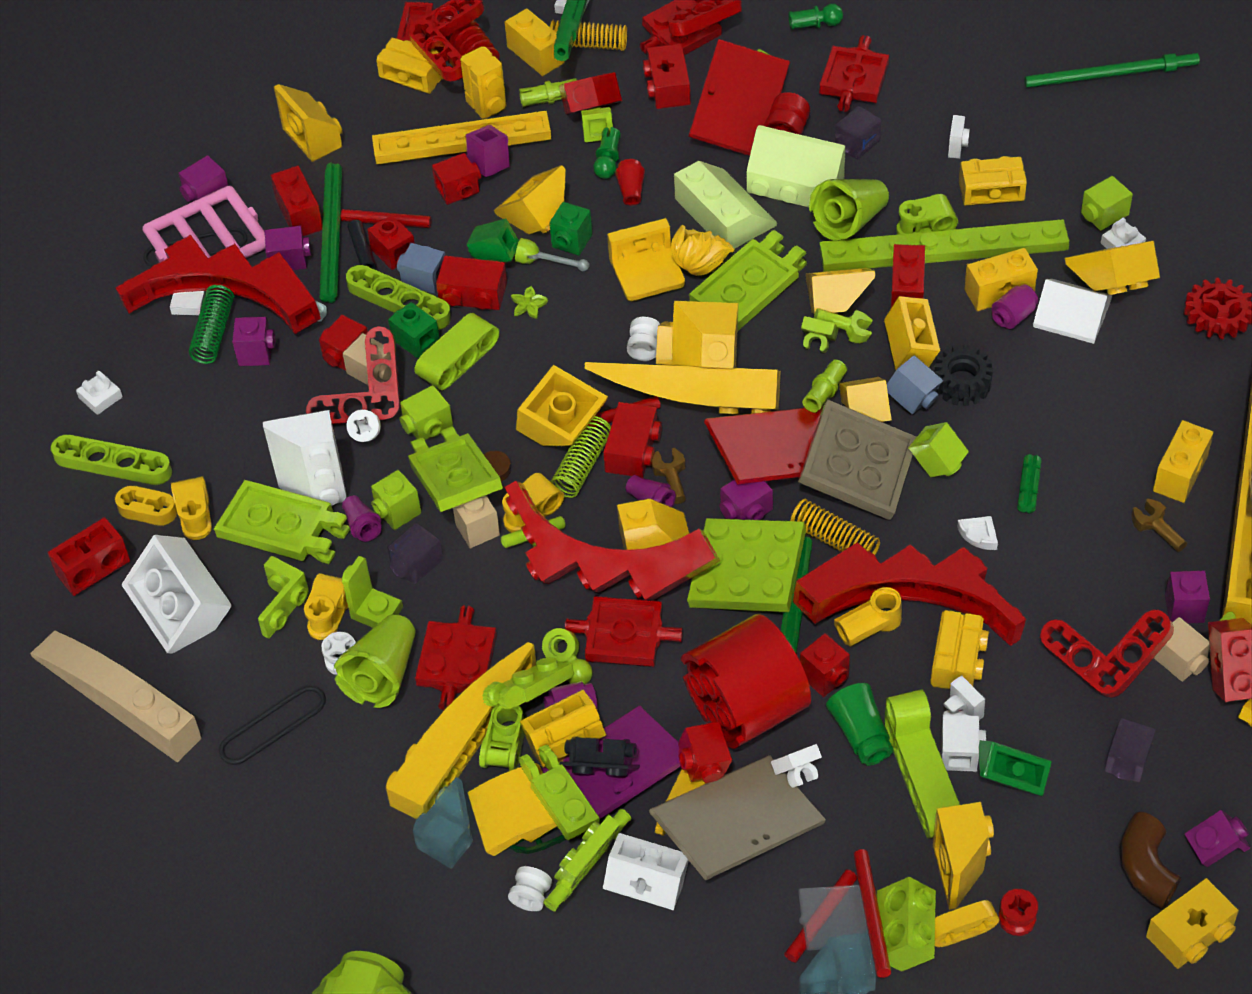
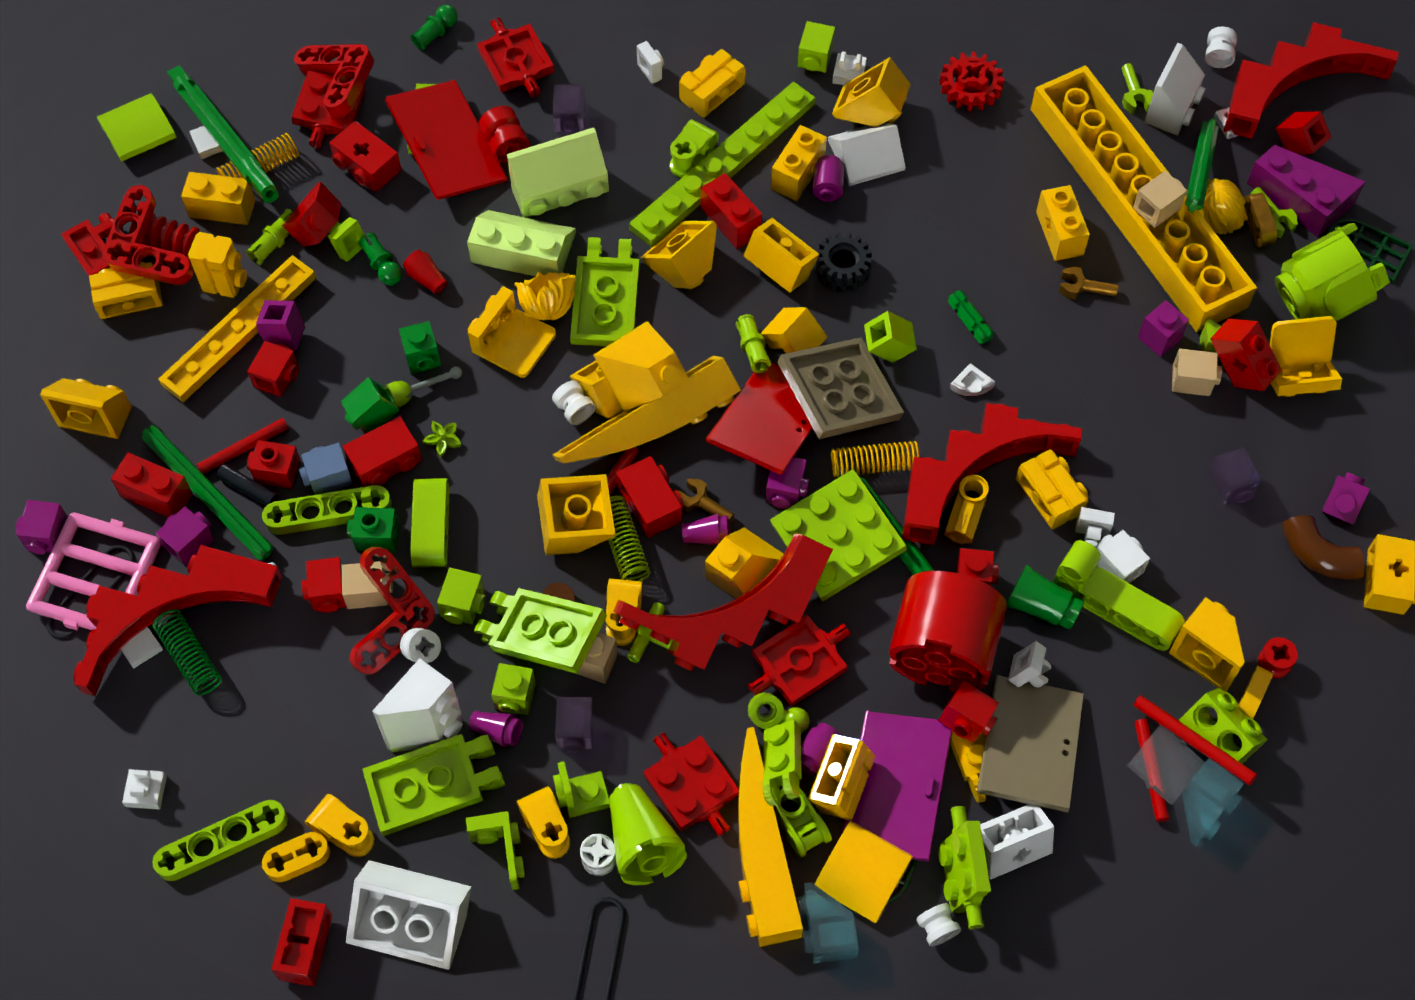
camera: 45 degrees left, 10 degrees up
(253, 341) = (244, 640): magenta brick -> none
(535, 201) = (364, 342): yellow slope -> none
(559, 794) = (895, 832): lime hinge -> none
(615, 755) = (909, 773): black hinge -> none
(818, 330) = (702, 300): lime tile -> none
(846, 205) = (631, 180): lime cone -> none
(851, 324) = (719, 277): lime bar -> none
(914, 385) = (822, 295): sand blue brick -> none
(1013, 767) = (1176, 550): green slope -> none
(1104, 664) = (1154, 423): red beam -> none

